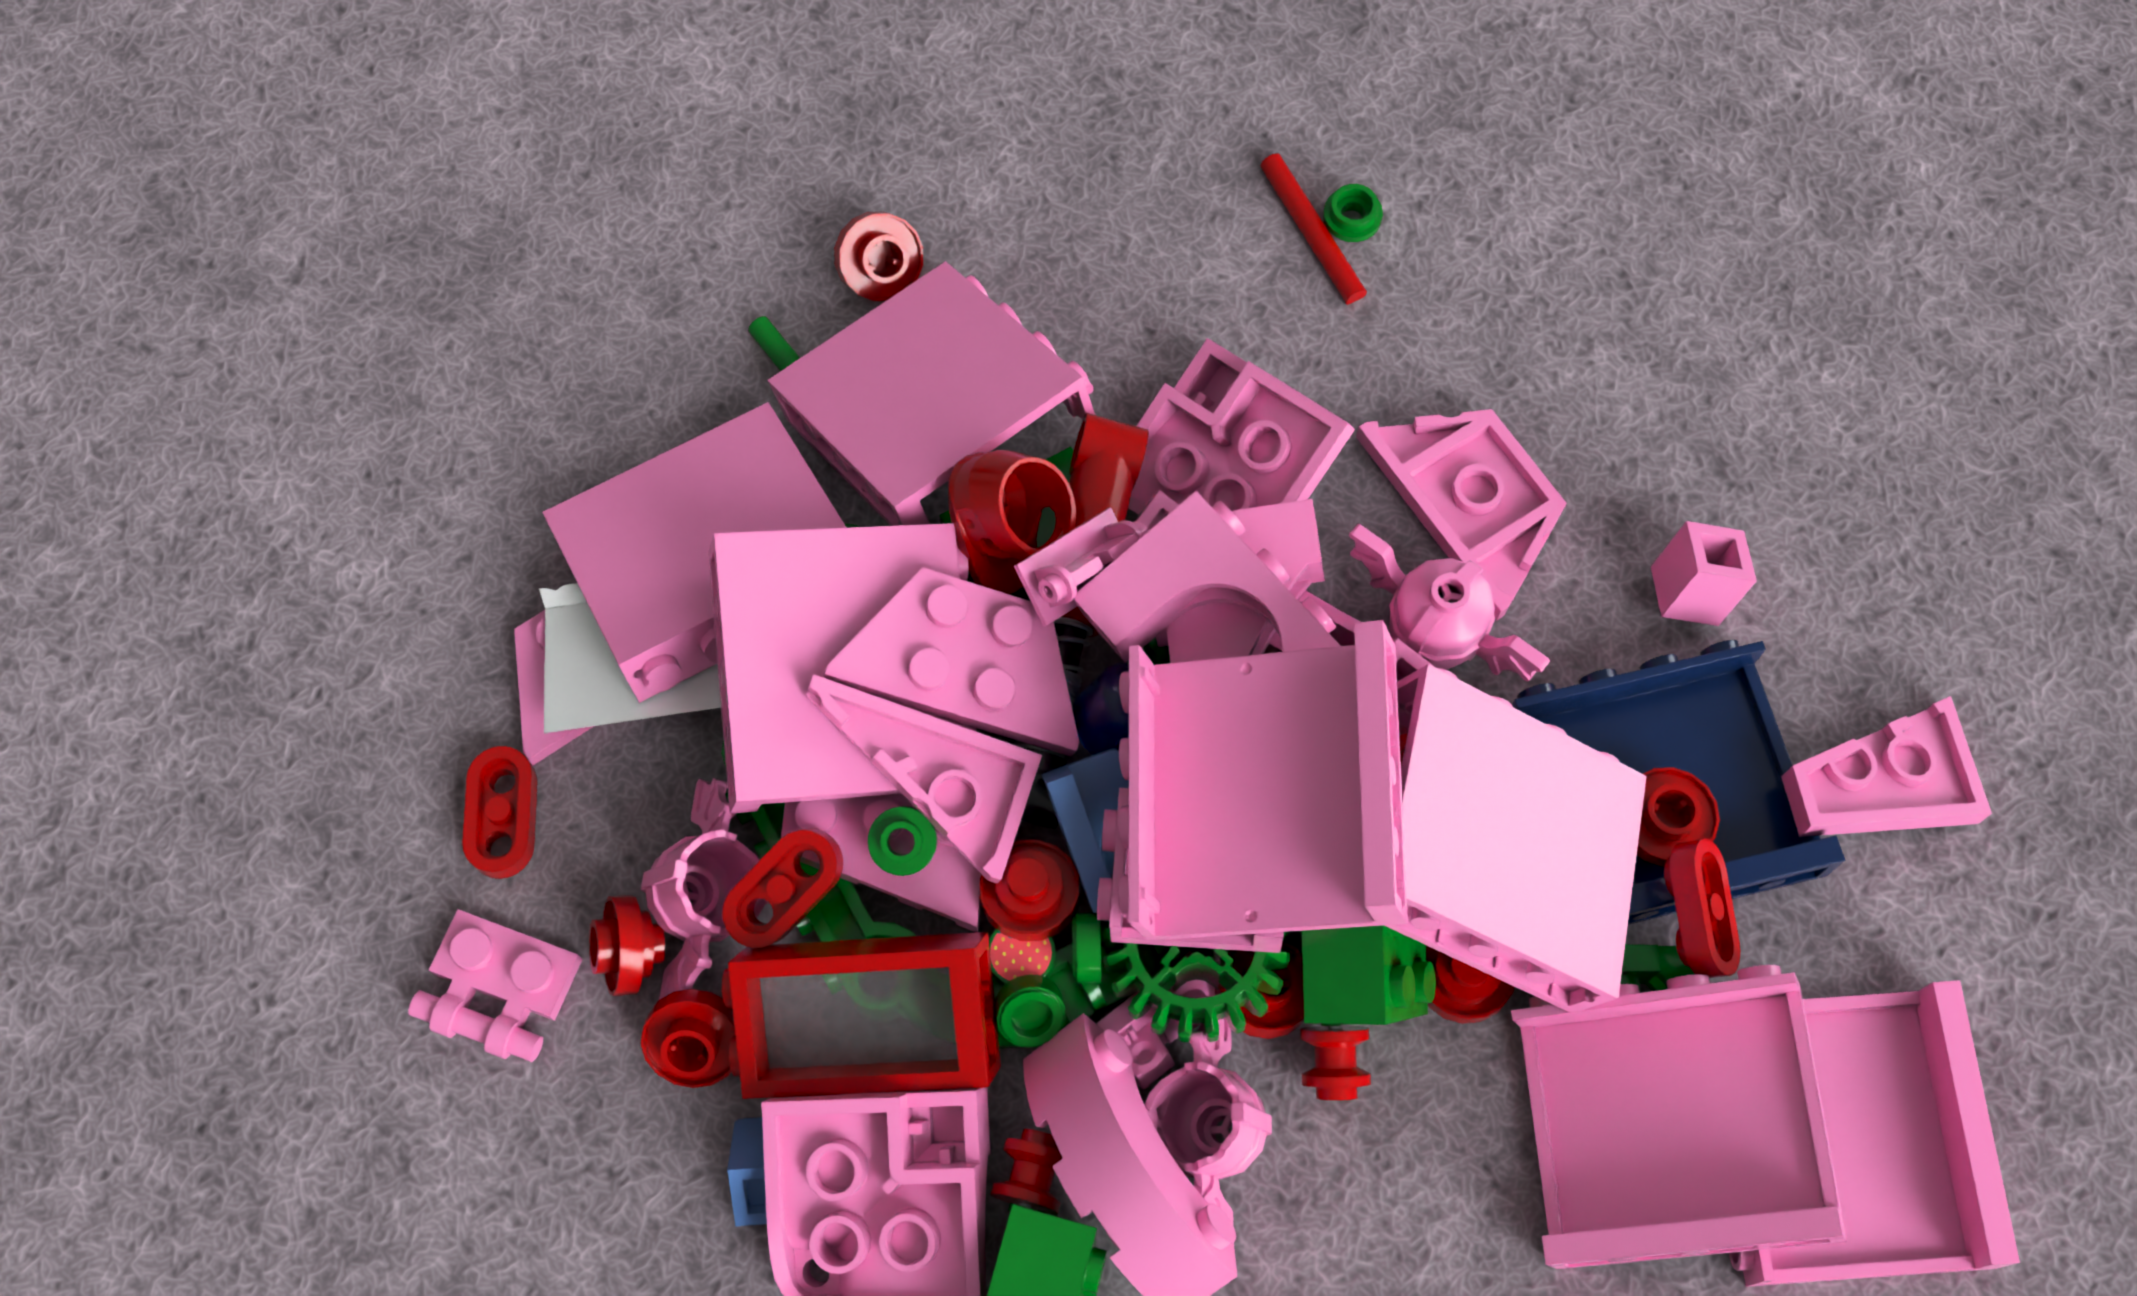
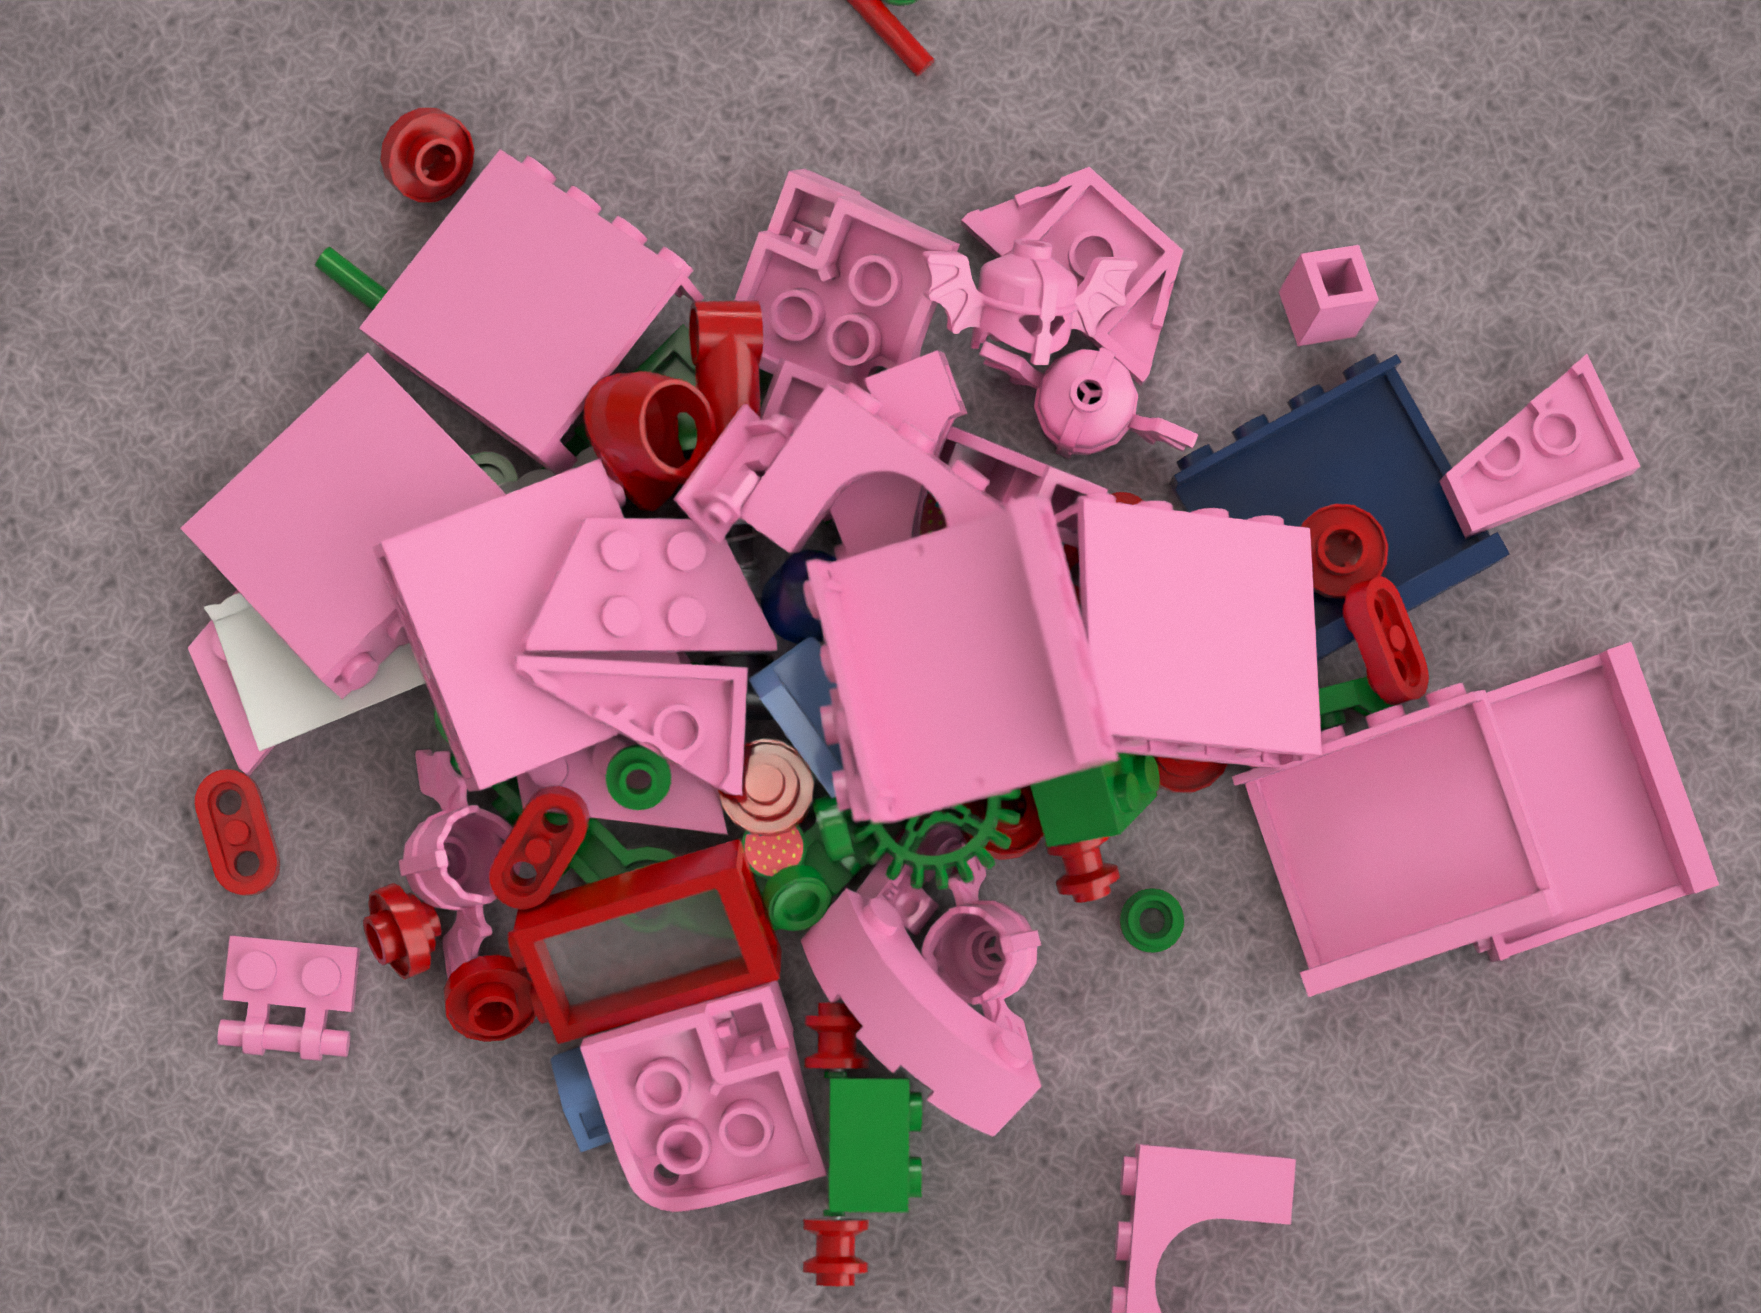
camera: 20 degrees left, 15 degrees up
(1406, 495) = (1025, 296): none -> bright pink helmet
(1410, 1131) = (1171, 913): none -> green plate

